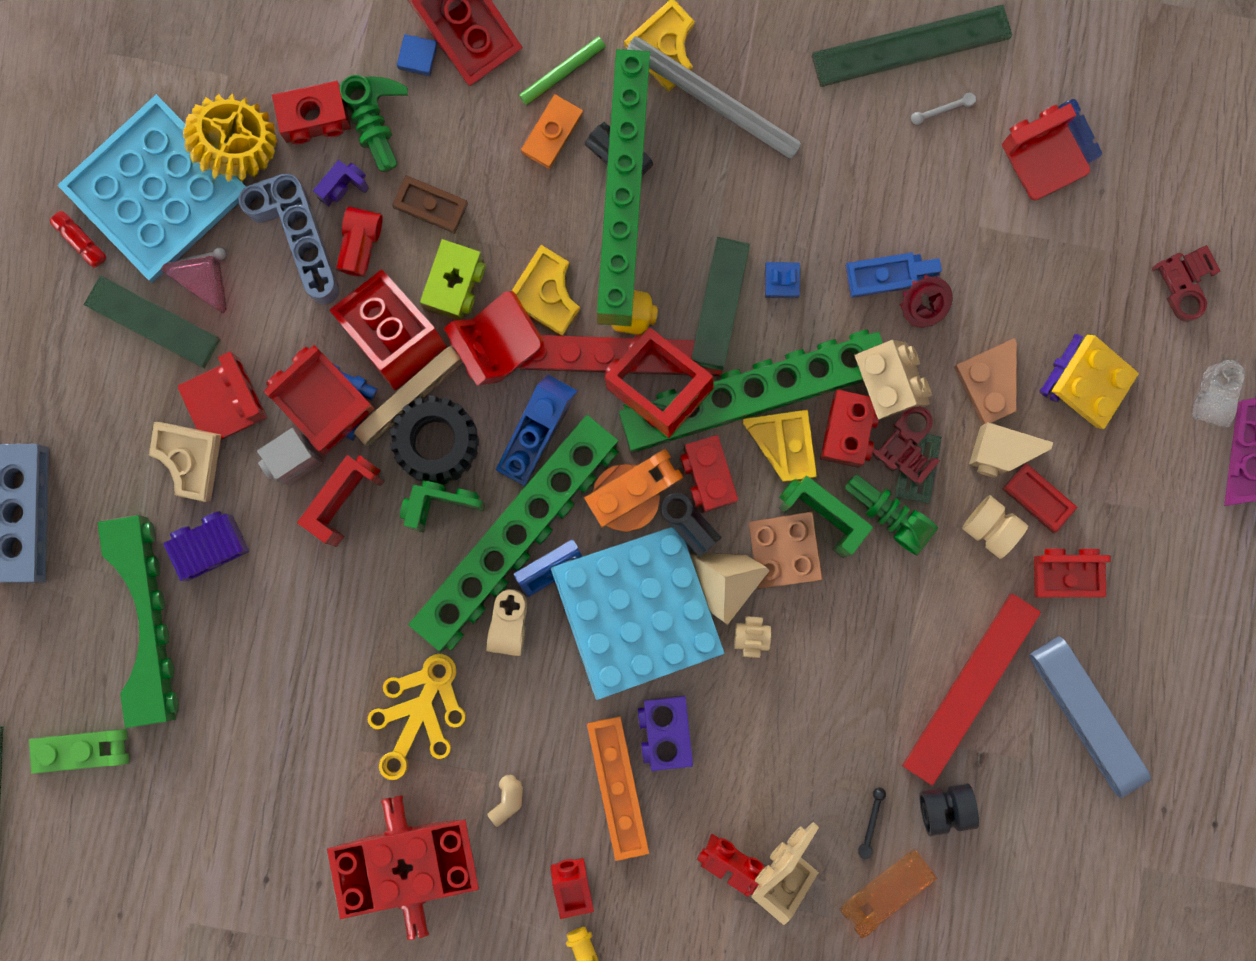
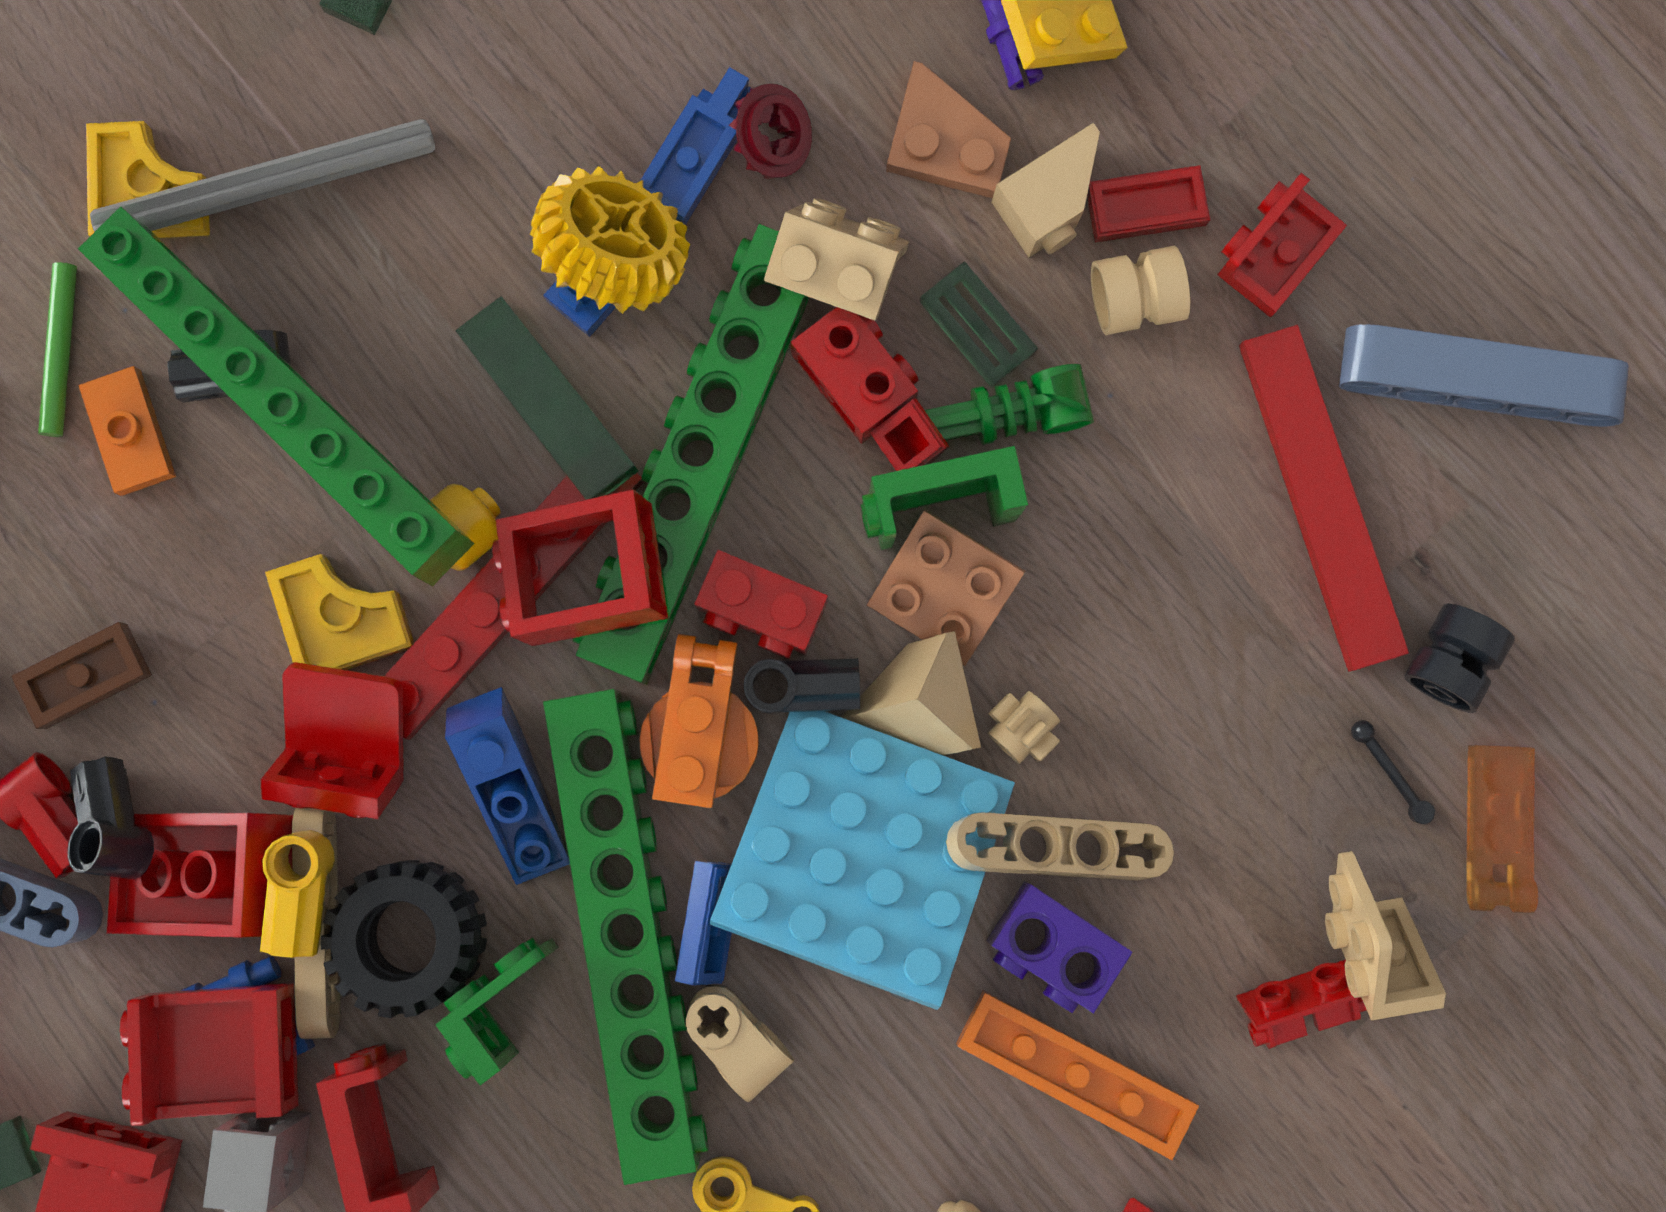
camera: 50 degrees left, 0 degrees up
(372, 274) = (106, 832): none -> black piece
(413, 380) = (295, 900): none -> yellow piece
(452, 261) = (182, 719): lime brick -> none
(710, 699) = (1061, 851): none -> tan beam
(785, 443) = (804, 469): yellow wing -> none
(815, 271) = (609, 239): none -> yellow gear
(839, 478) = (909, 437): none -> red slope
(904, 452) = (946, 323): dark red piece -> none

